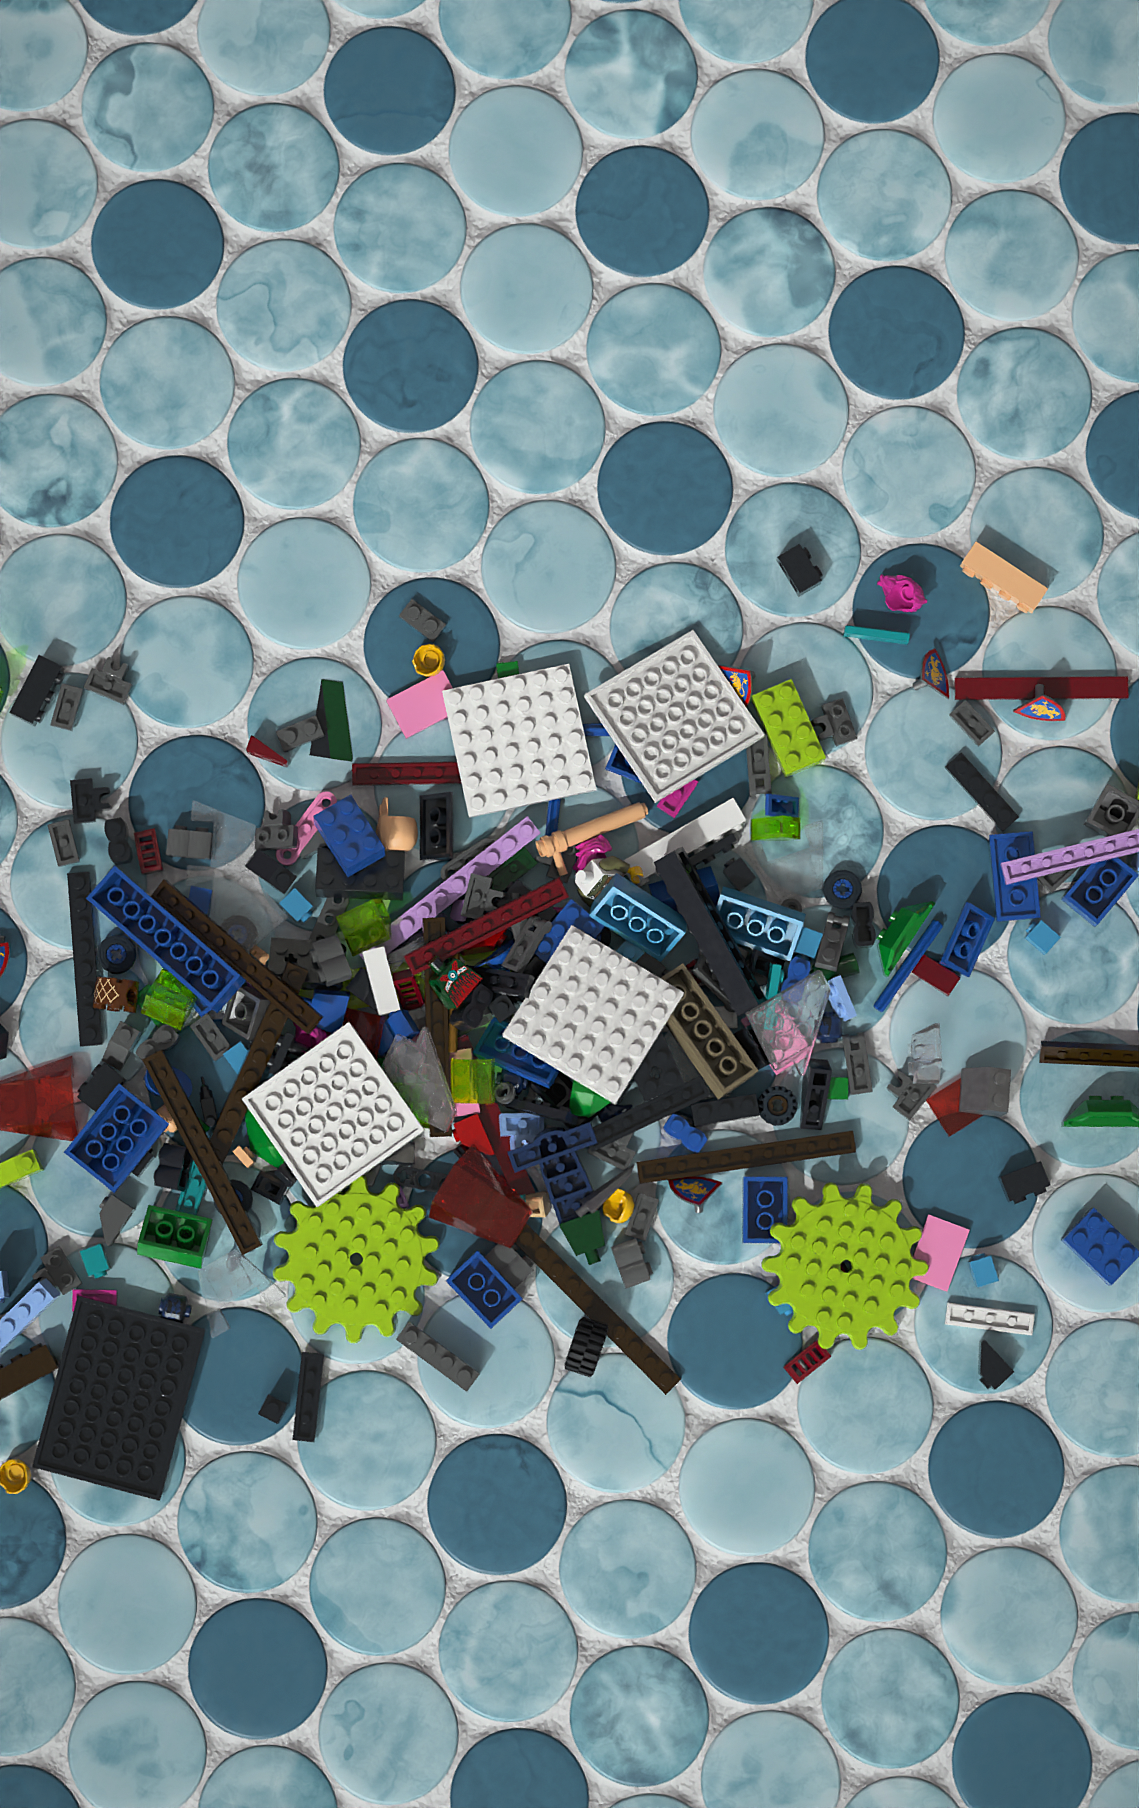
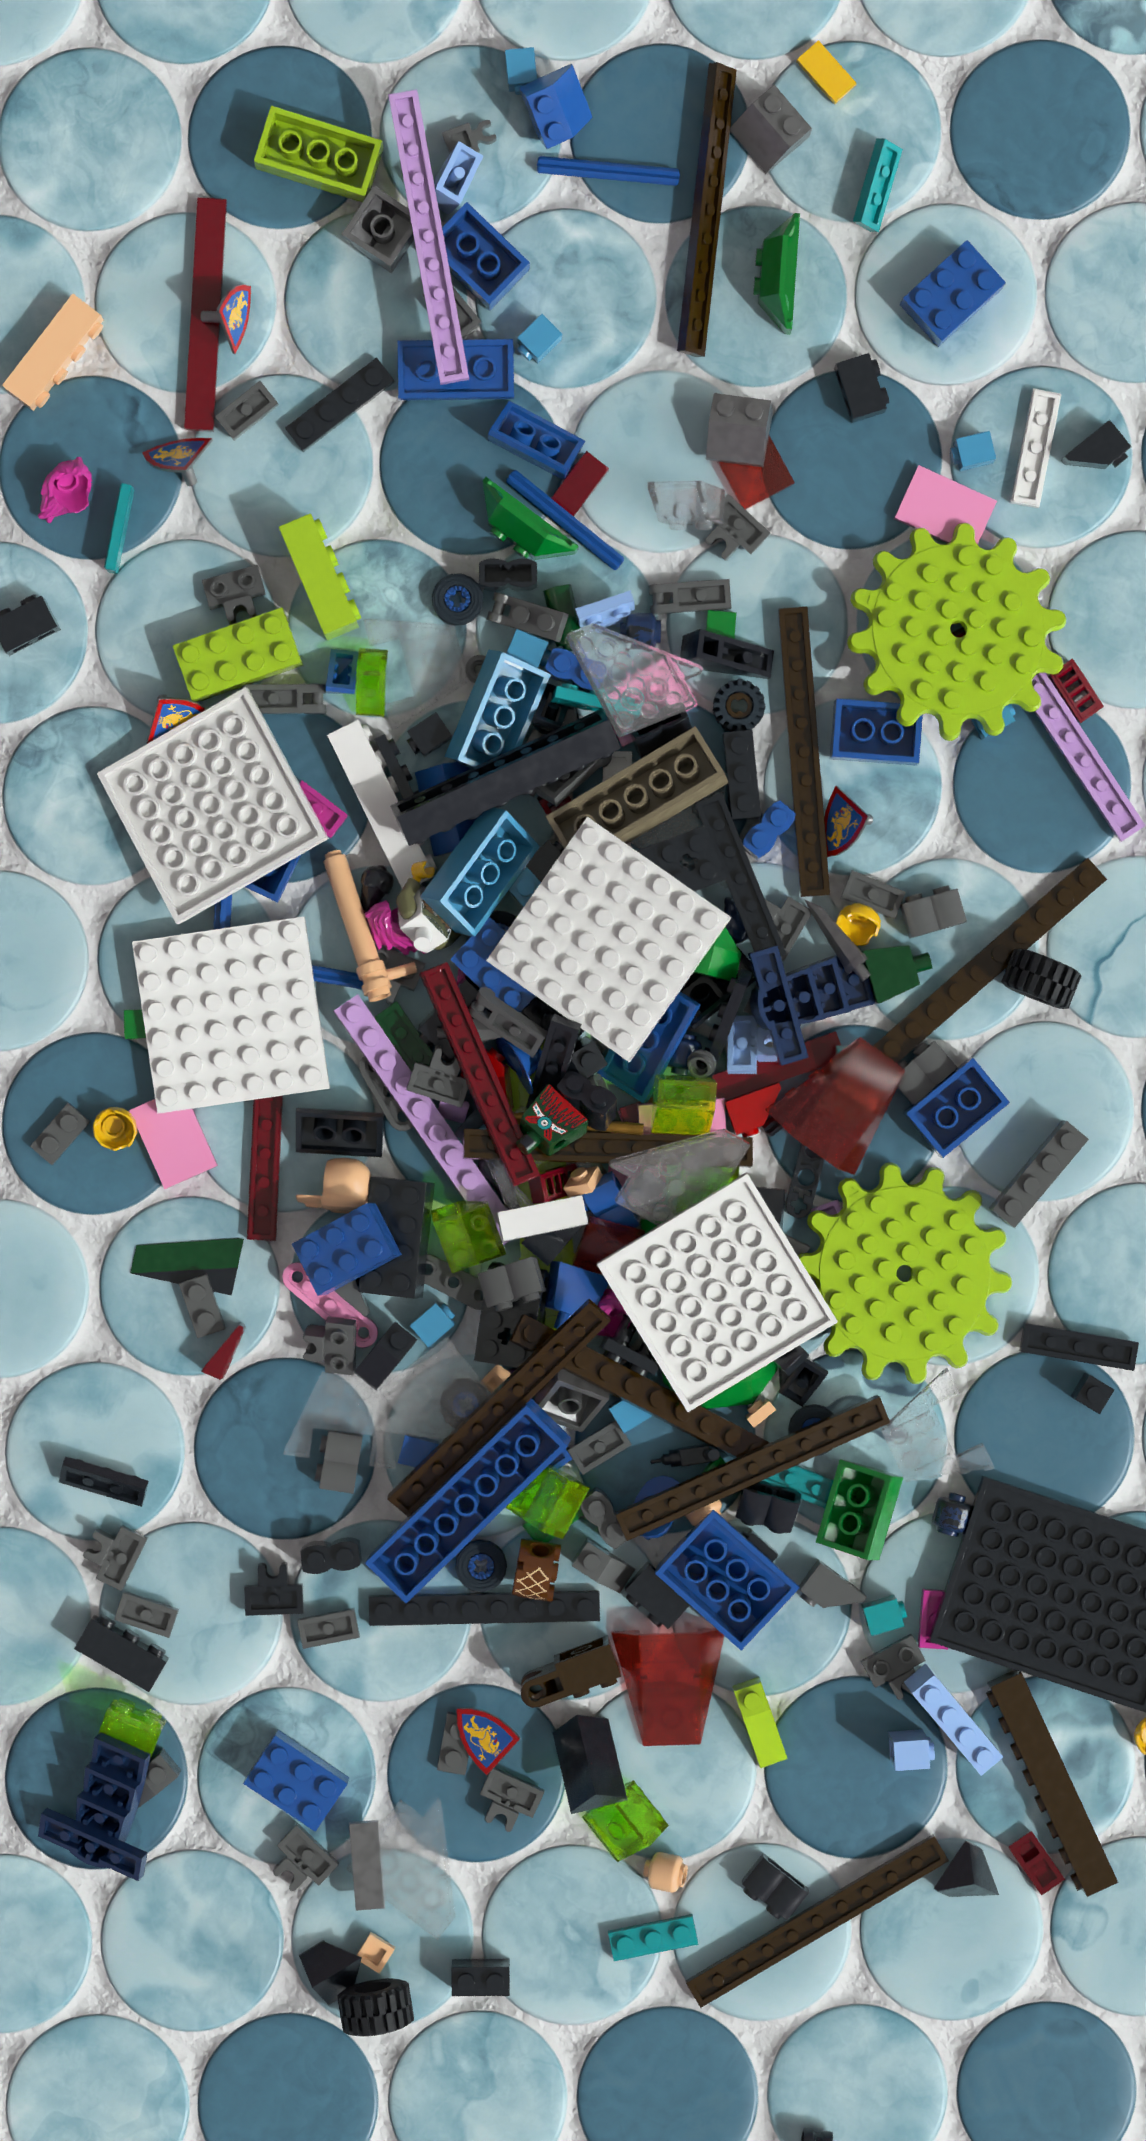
camera: 85 degrees left, 5 degrees up
(39, 1027) = (572, 1673): none -> dark brown brick
(152, 868) = (369, 1506): dark red slope -> none
(164, 669) = (103, 1481): none -> black plate
(411, 1010) = (582, 1181): none -> light nougat plate
(539, 1203) = (847, 1029): tan slope -> none
(624, 842) = (375, 884): none -> black piece
(755, 1371) = (1085, 760): none -> lavender plate
(850, 784) = (317, 572): none -> lime brick

